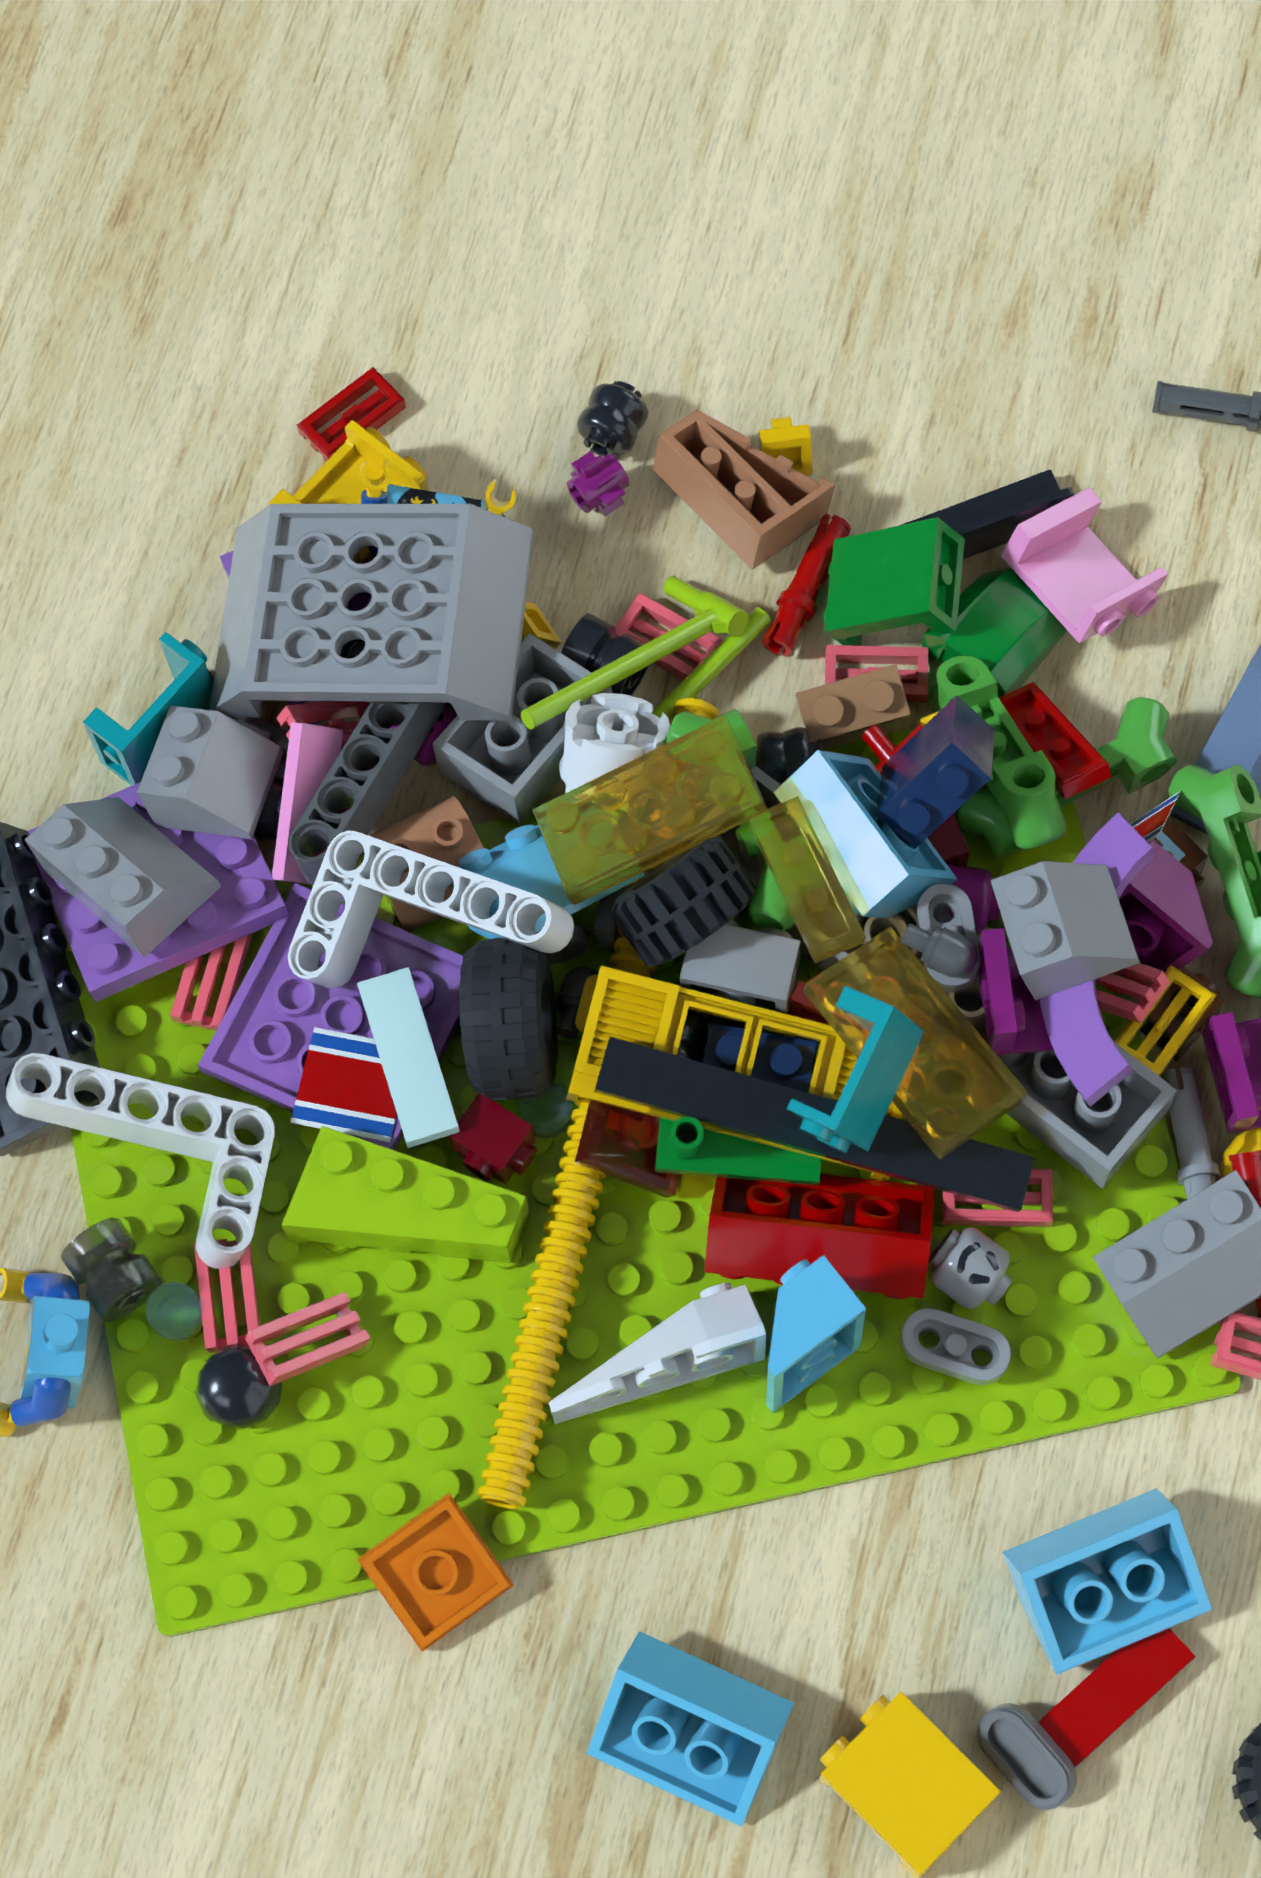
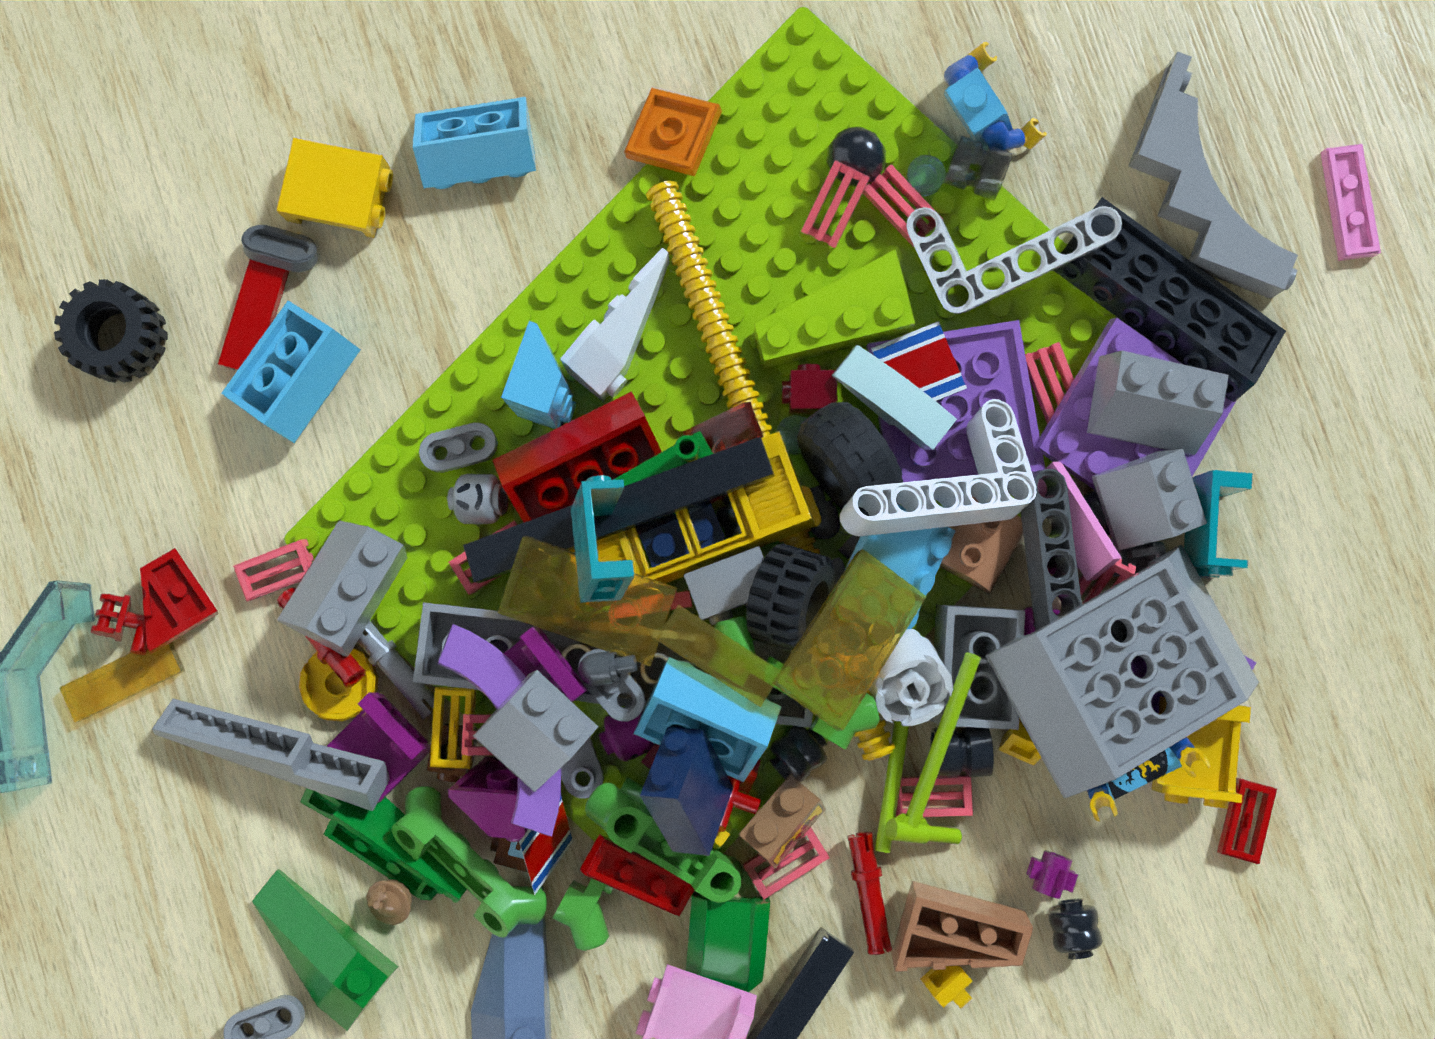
camera: 140 degrees right, 15 degrees up
(894, 580) = (809, 925): green panel -> none

